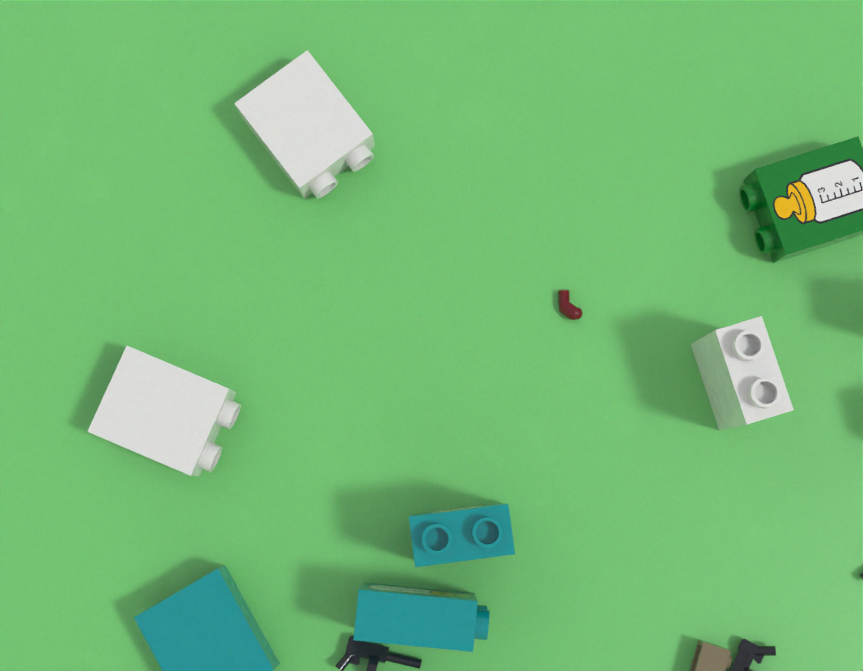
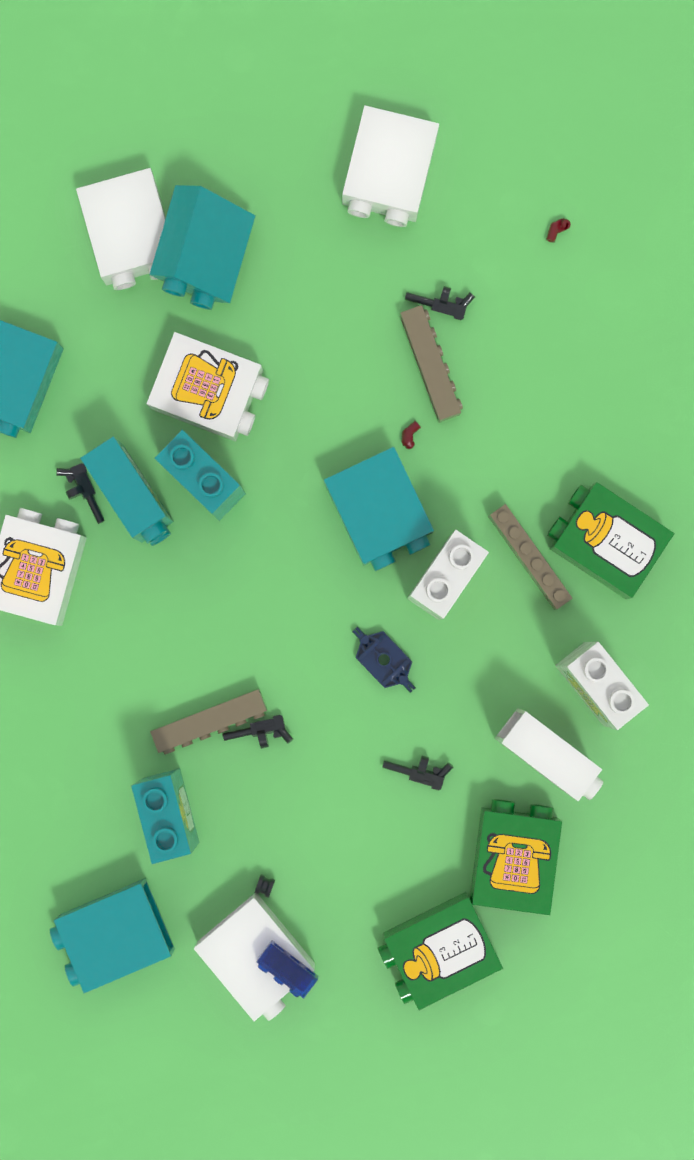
camera: 50 degrees right, 5 degrees up
(240, 356) = (201, 246): none -> teal brick
(376, 458) = (207, 387): none -> white brick
(471, 180) = (443, 305): none -> black piece
(482, 26) = (557, 227): none -> dark red arm
(518, 234) = (430, 363): none -> dark tan brick
(620, 388) = (380, 509): none -> teal brick
(744, 501) = (387, 675): none -> dark blue plate
(771, 286) = (530, 557): none -> dark tan brick

